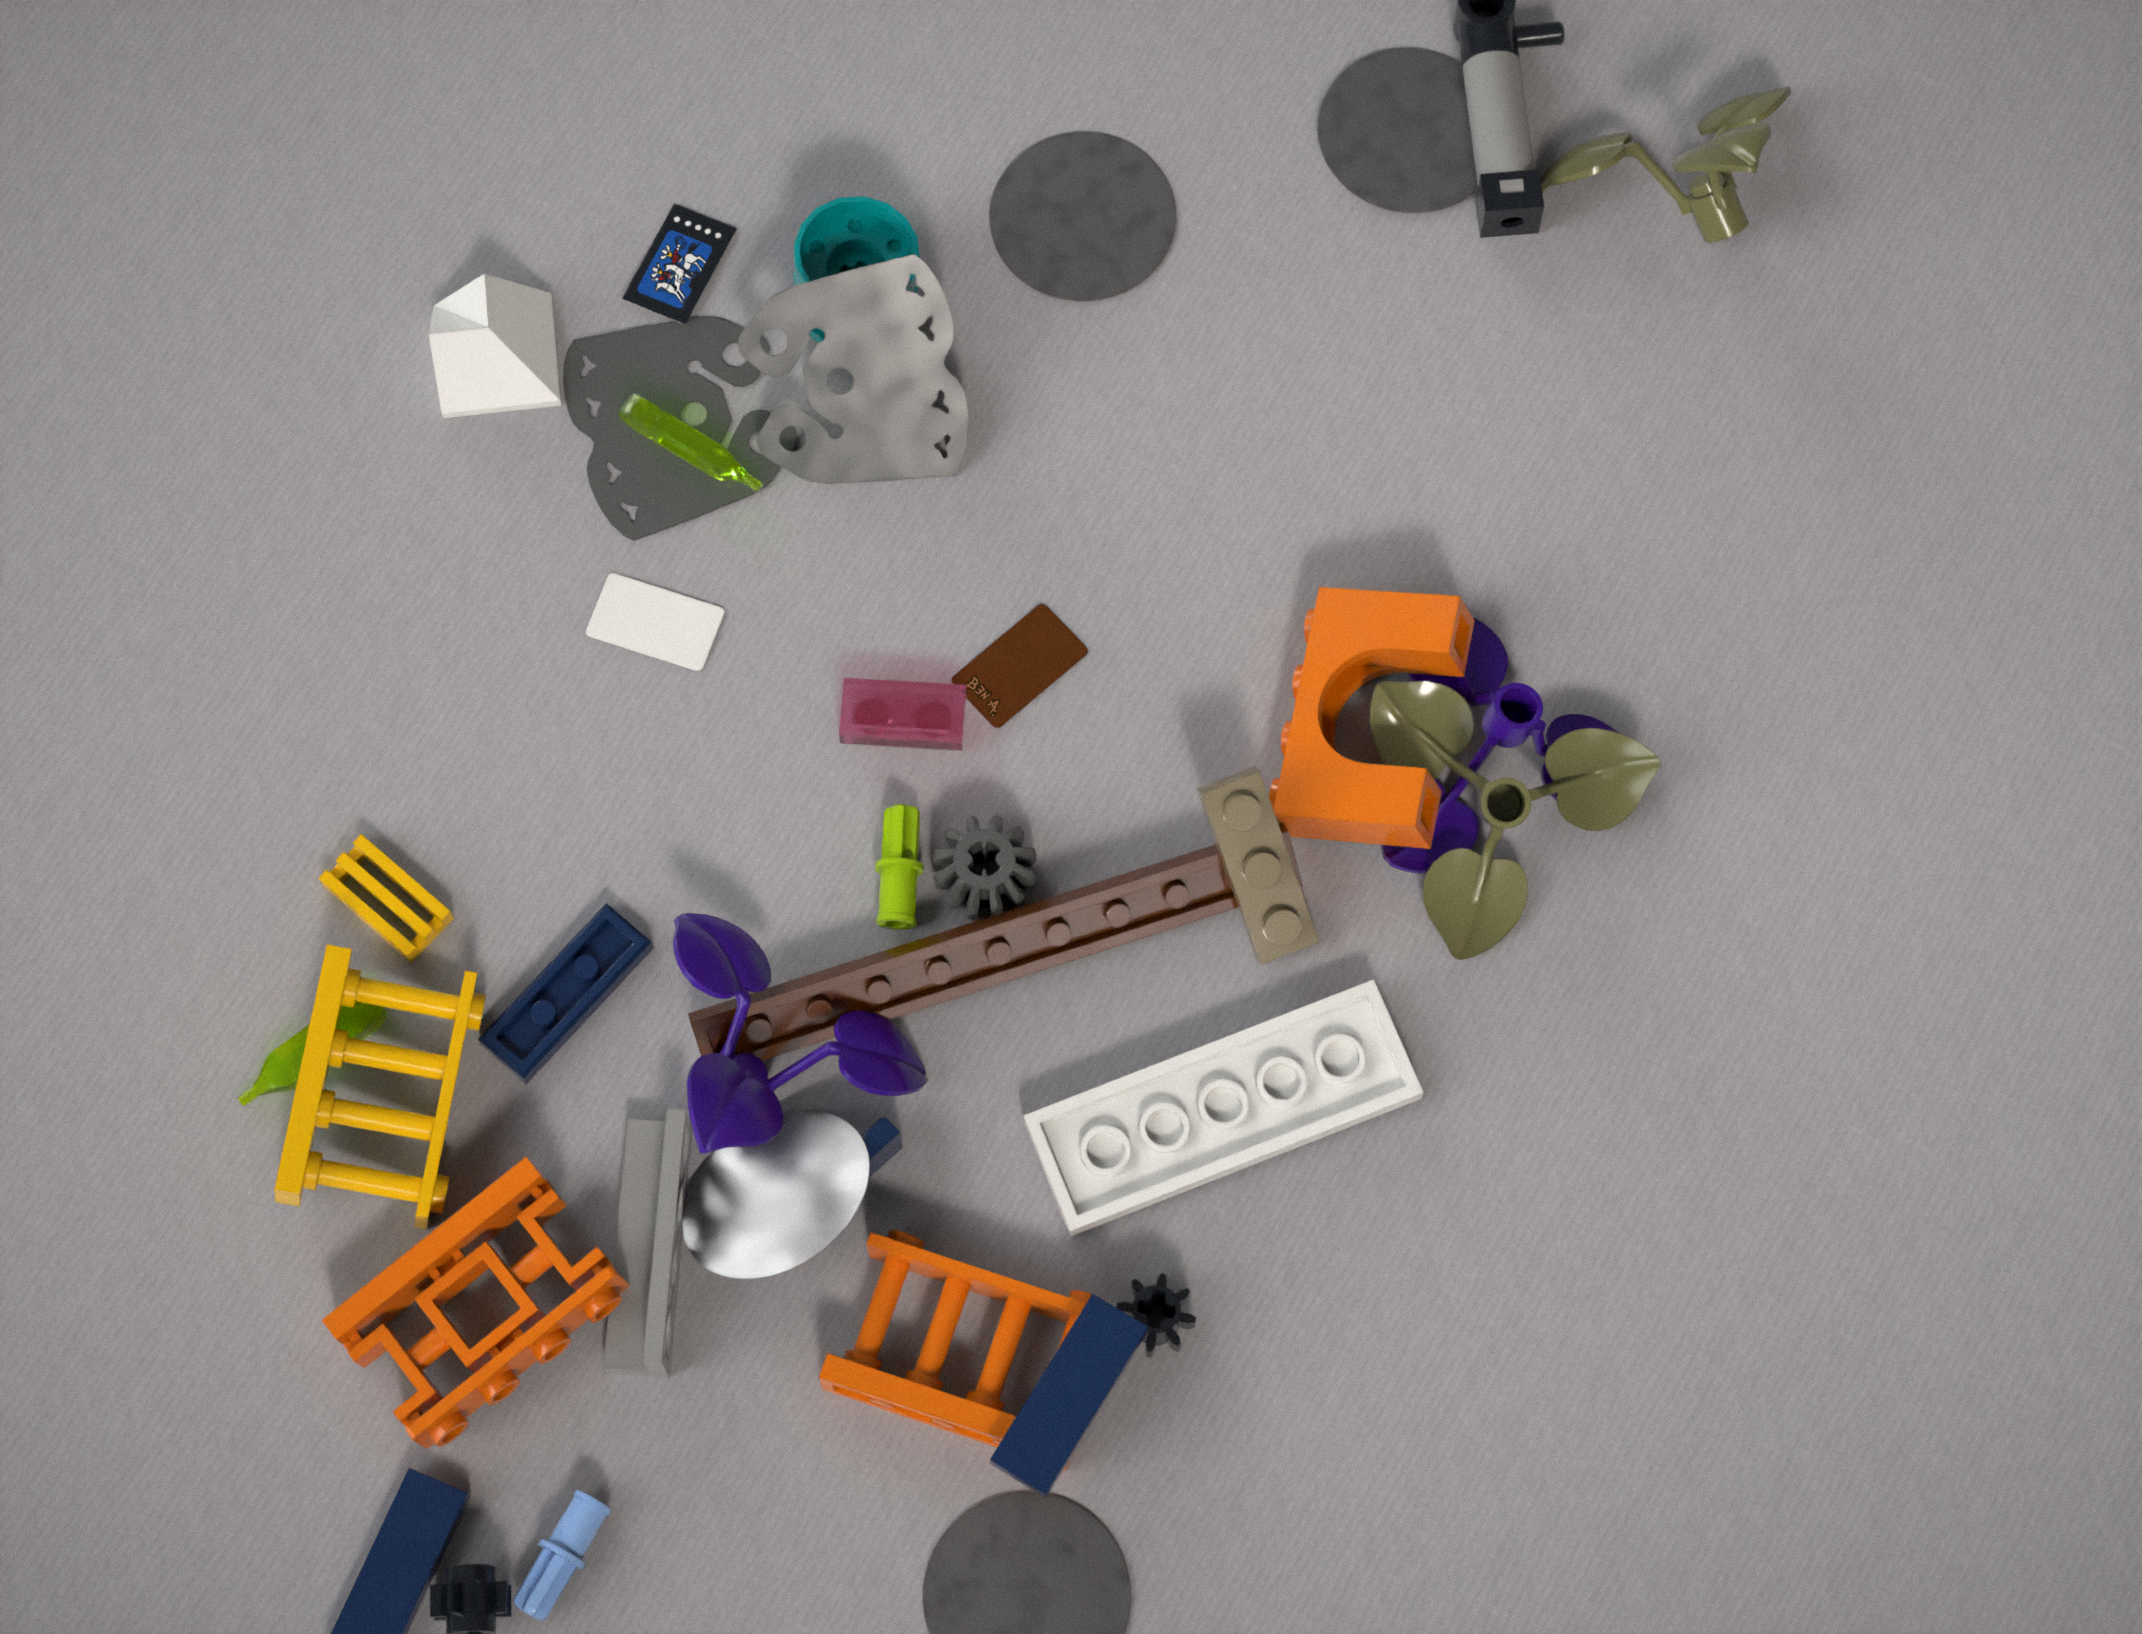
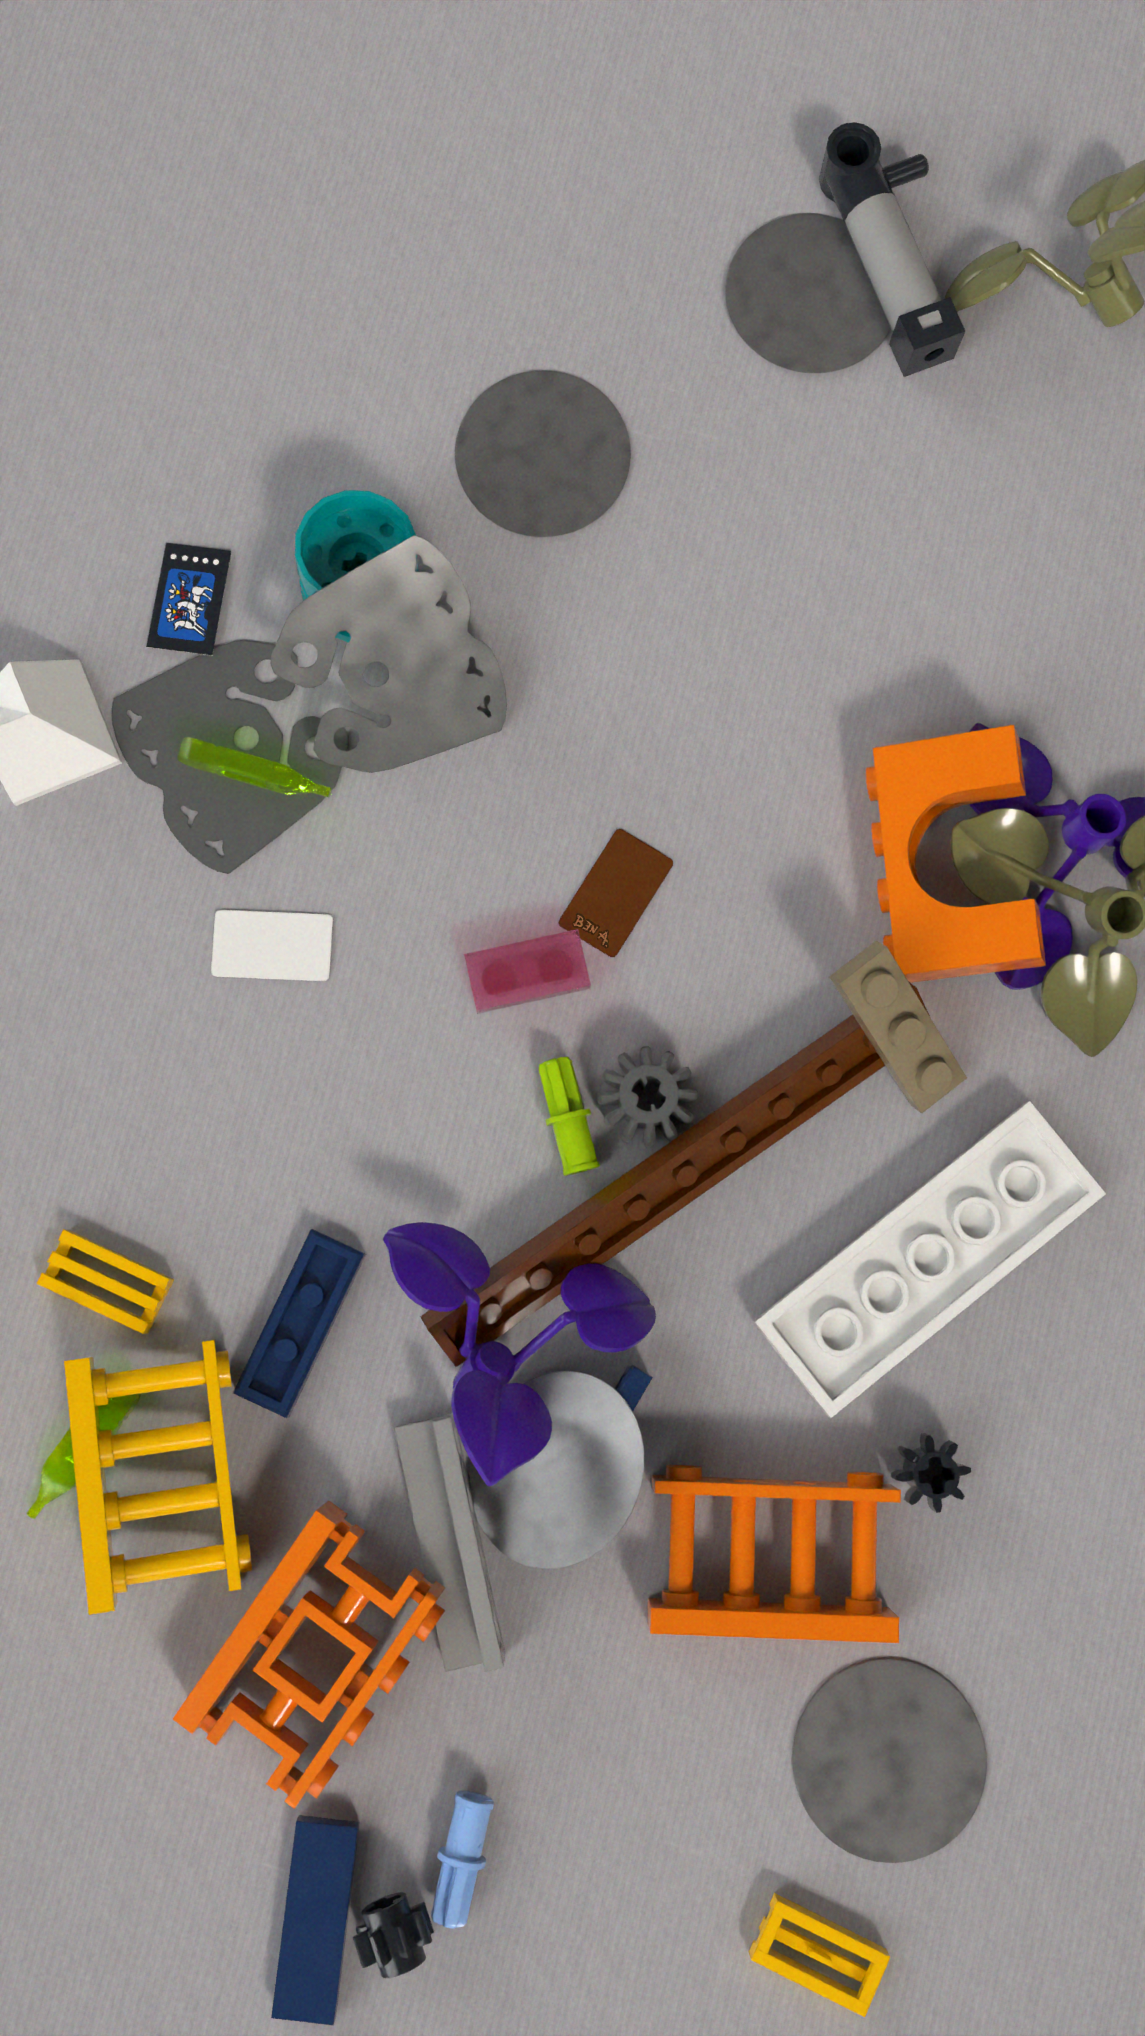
camera: 20 degrees left, 10 degrees up
(1069, 1395) = (886, 1587): dark blue tile -> none

